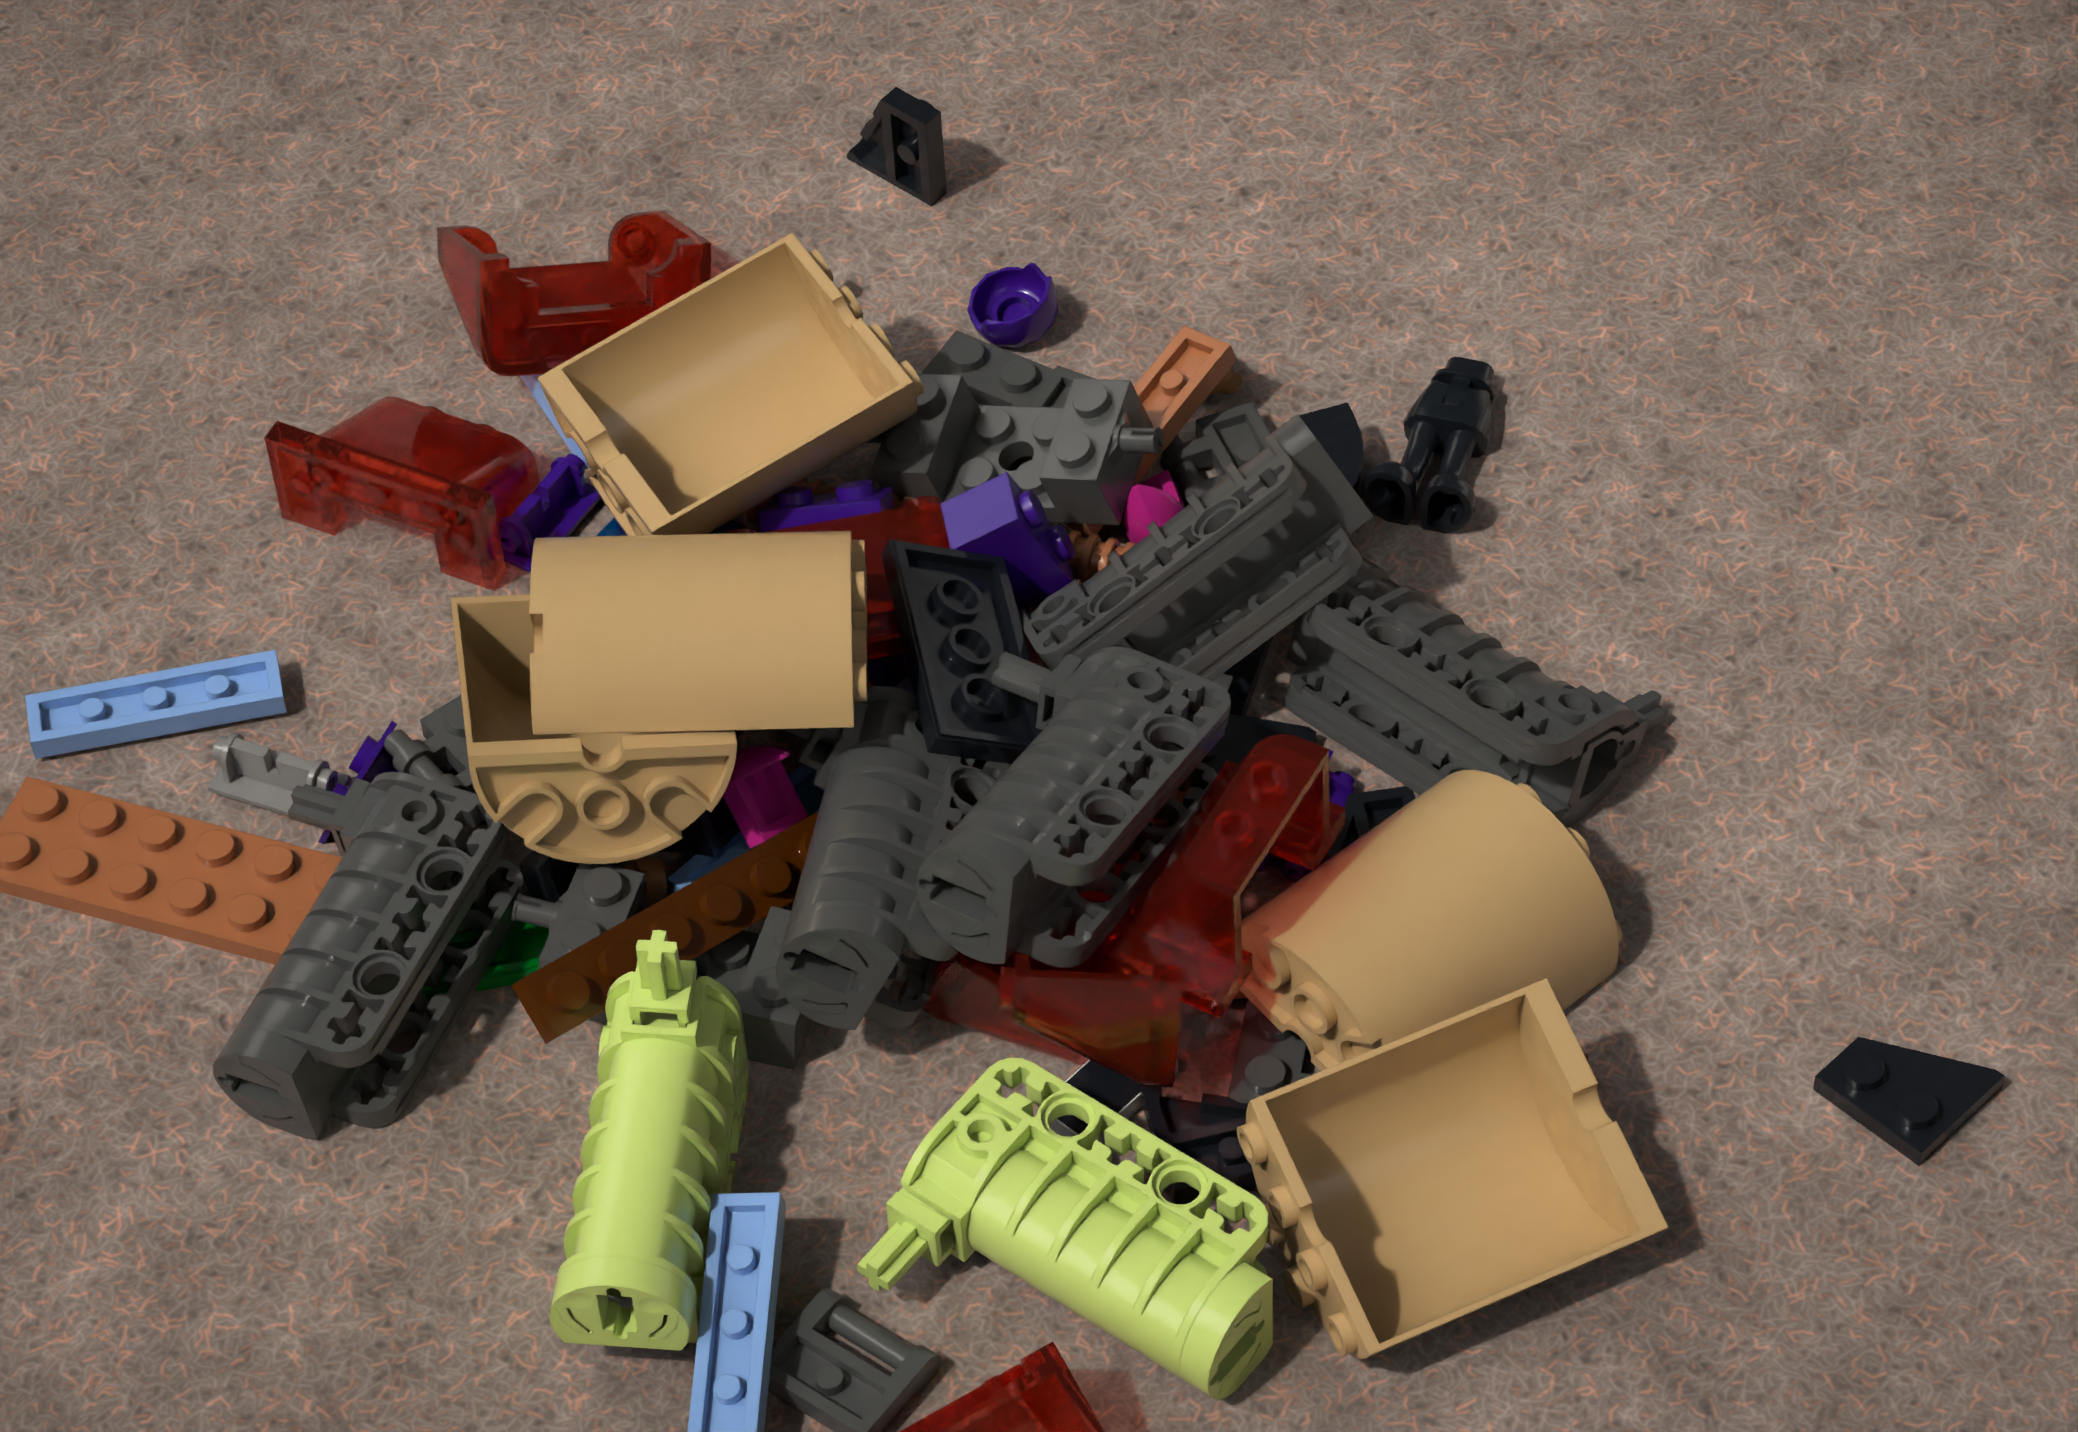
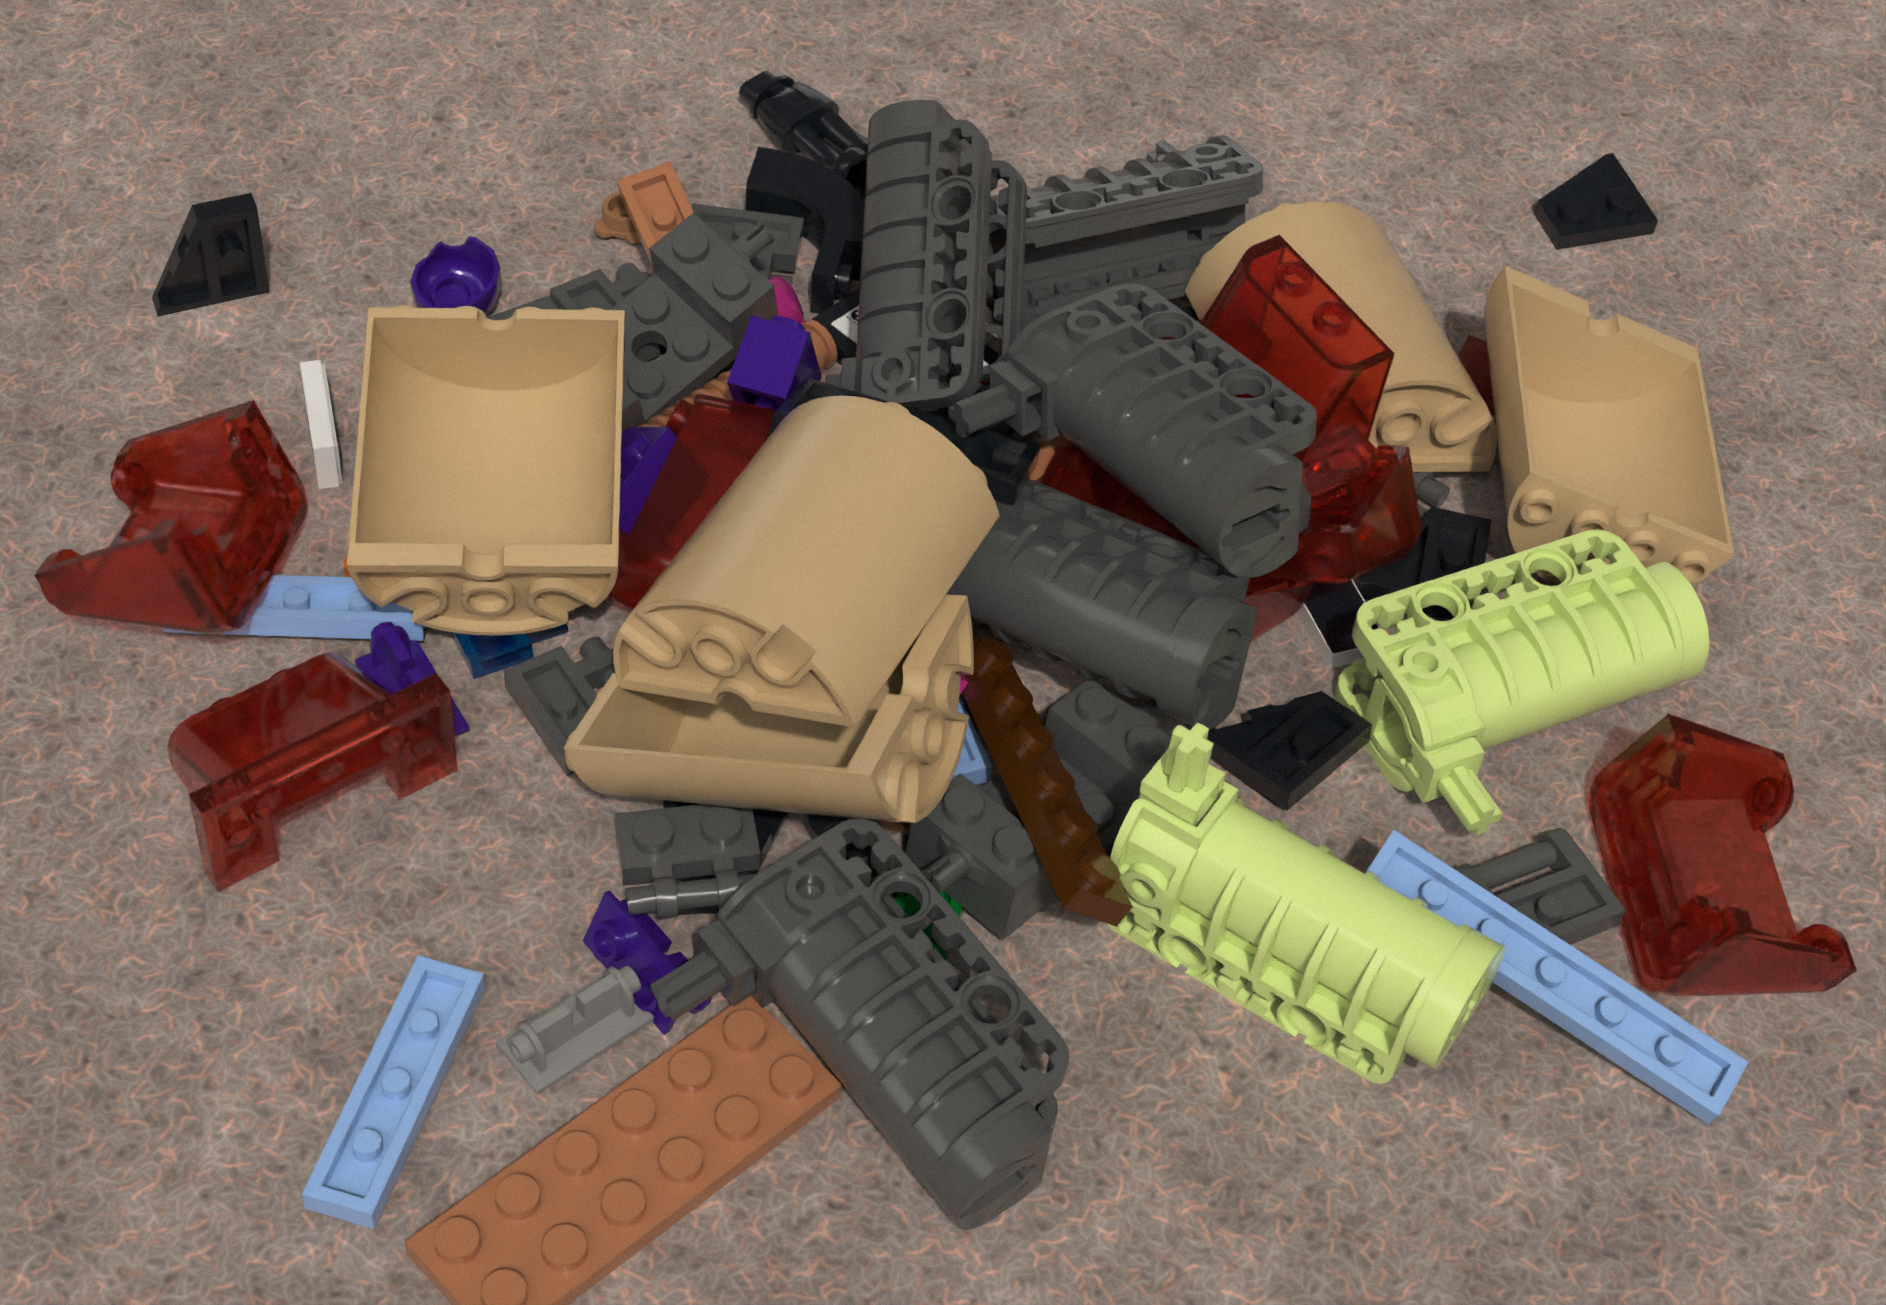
camera: 70 degrees left, 0 degrees up
(884, 1108) = (1290, 746): none -> black wing

